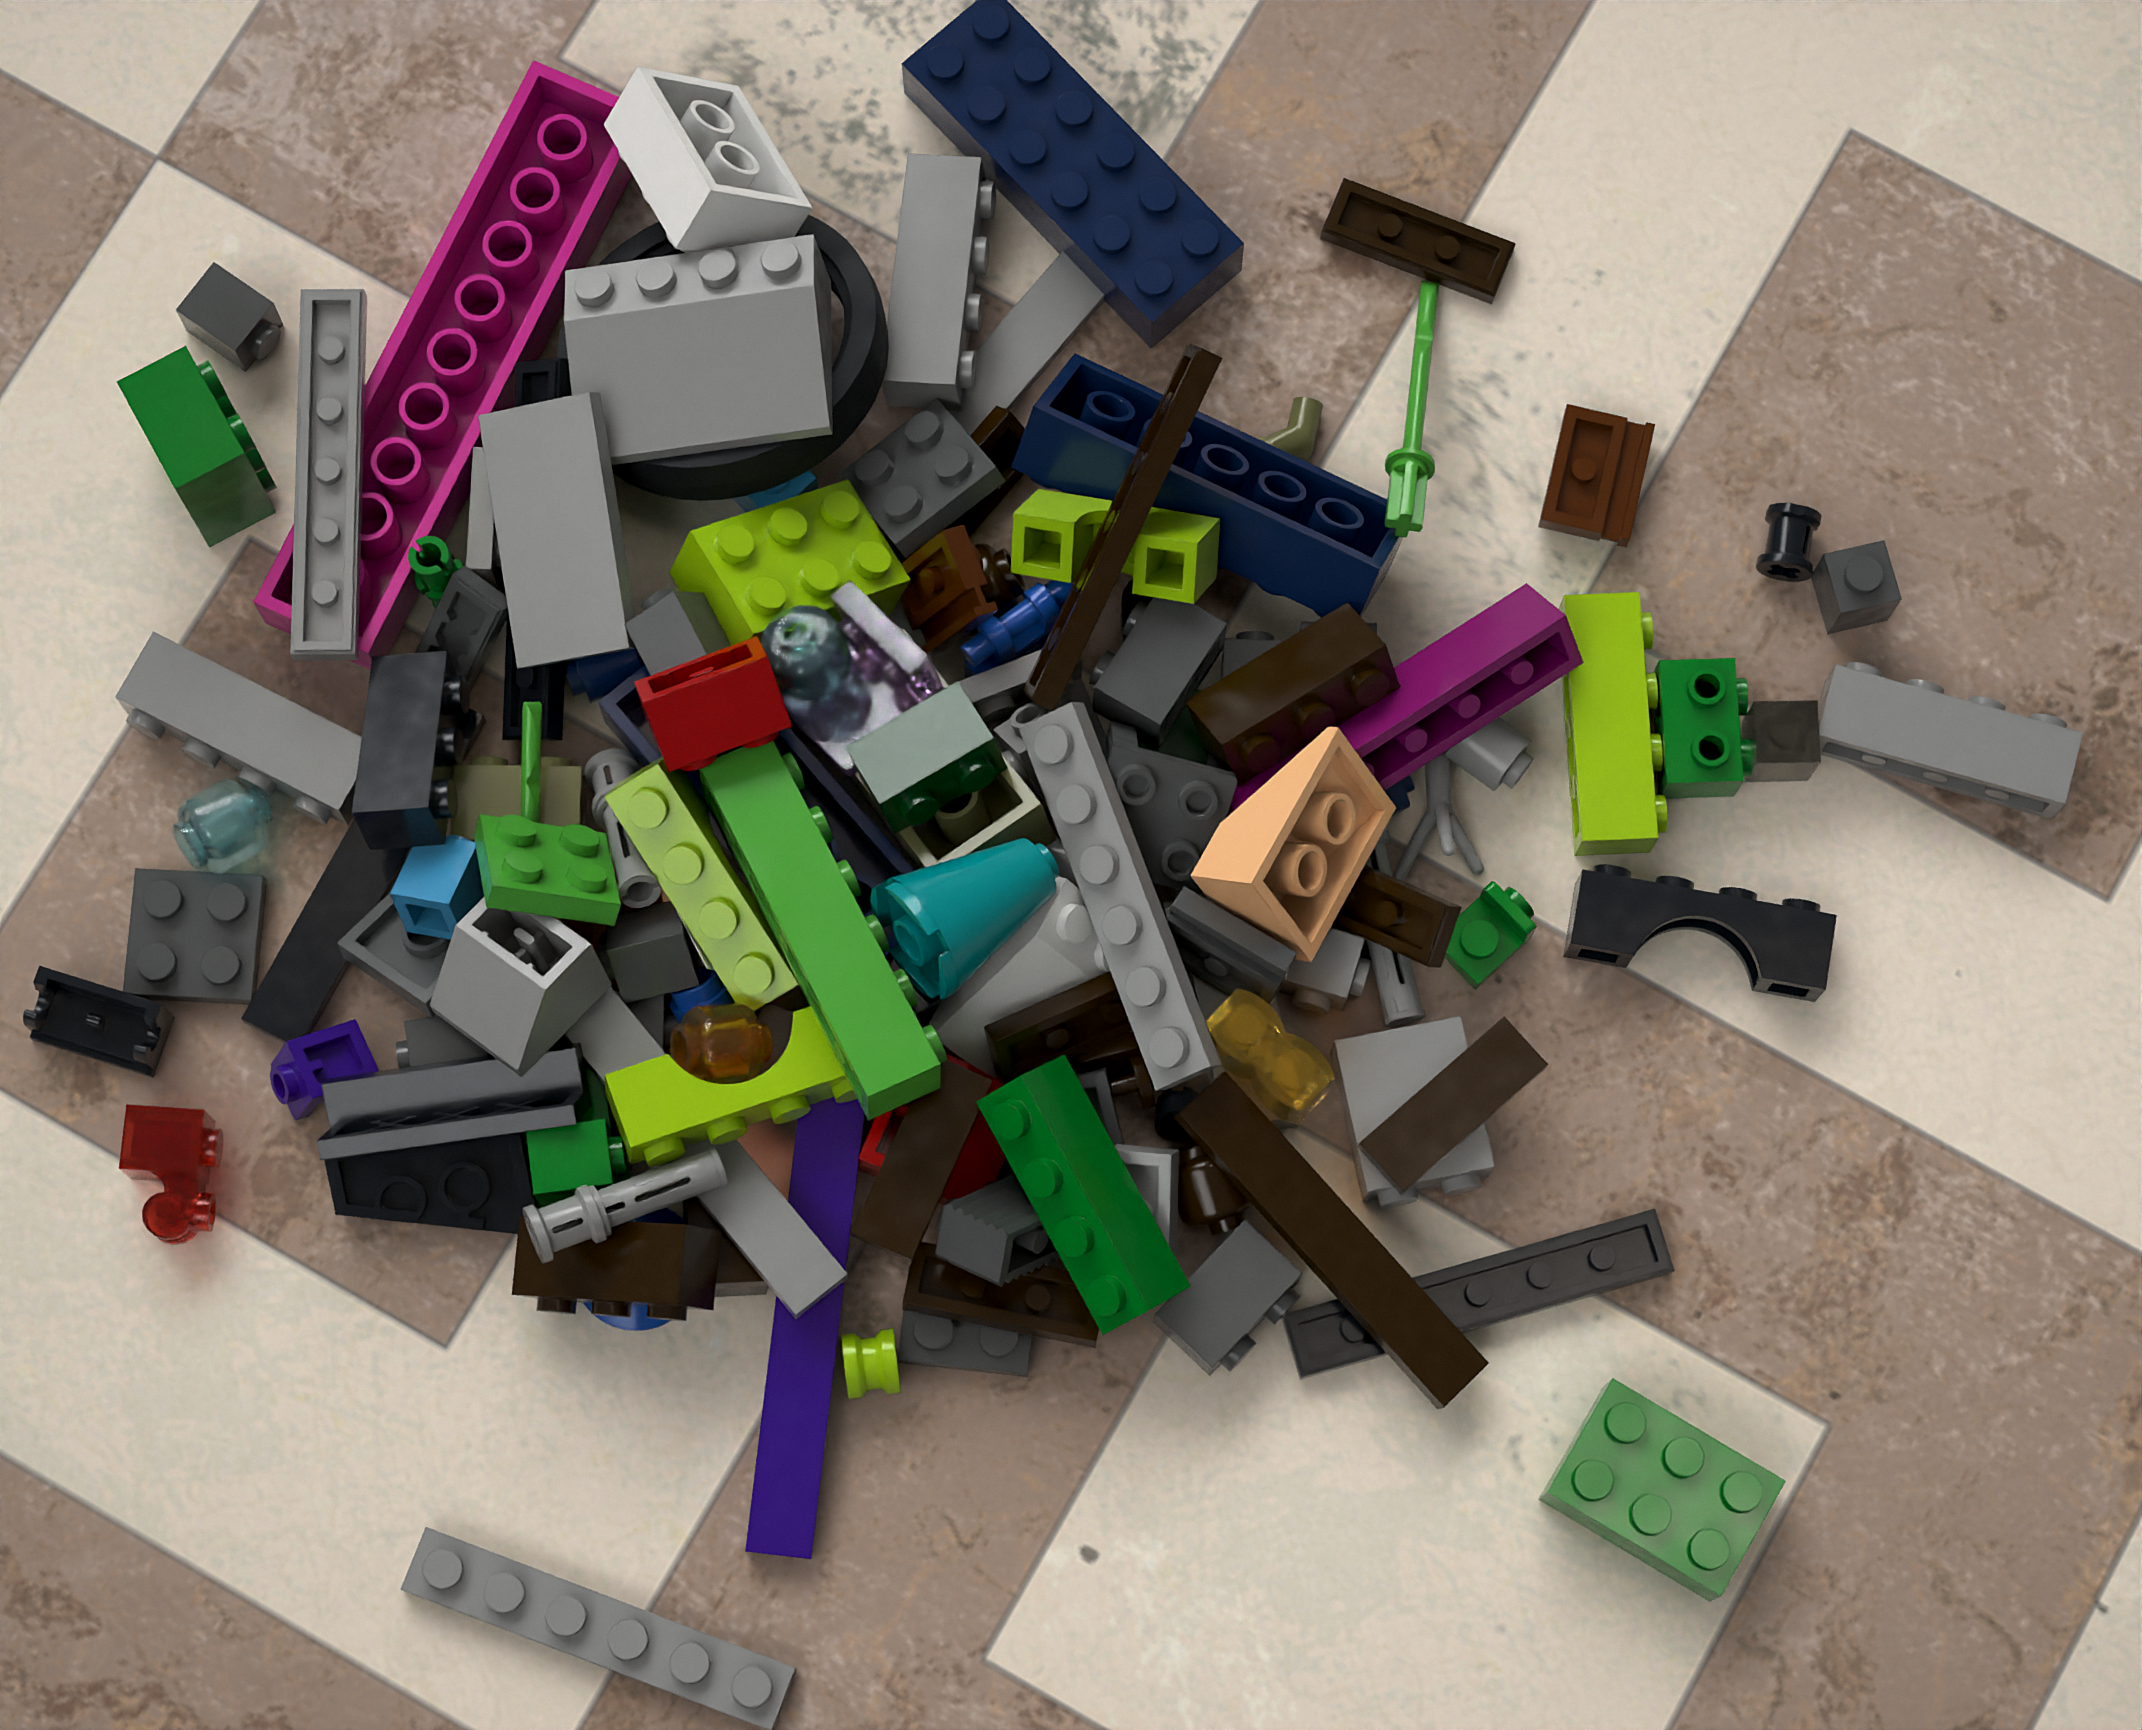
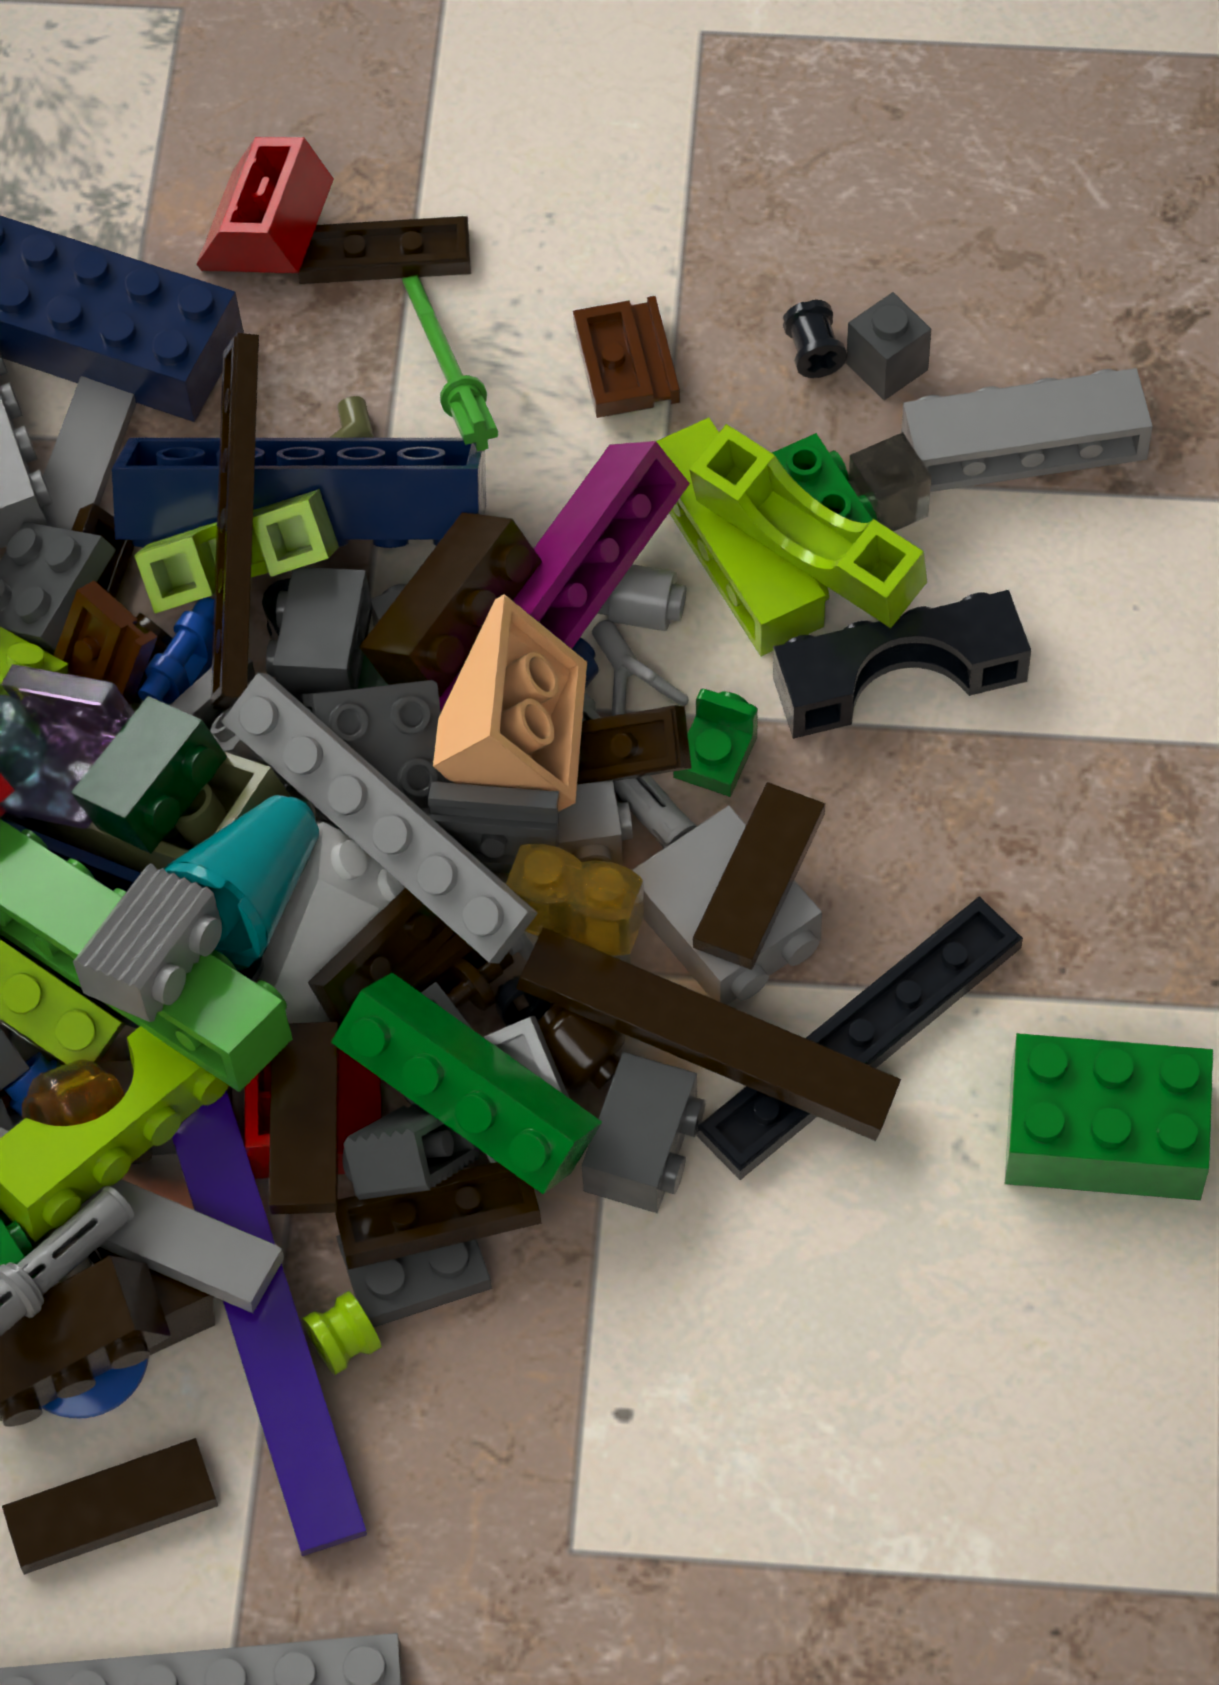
camera: 20 degrees left, 15 degrees down
(599, 1424) = (109, 1506): none -> dark brown tile
(844, 954) = (149, 943): none -> light grey brick
(1318, 155) = (268, 209): none -> red slope
(1669, 771) = (851, 558): none -> lime arch

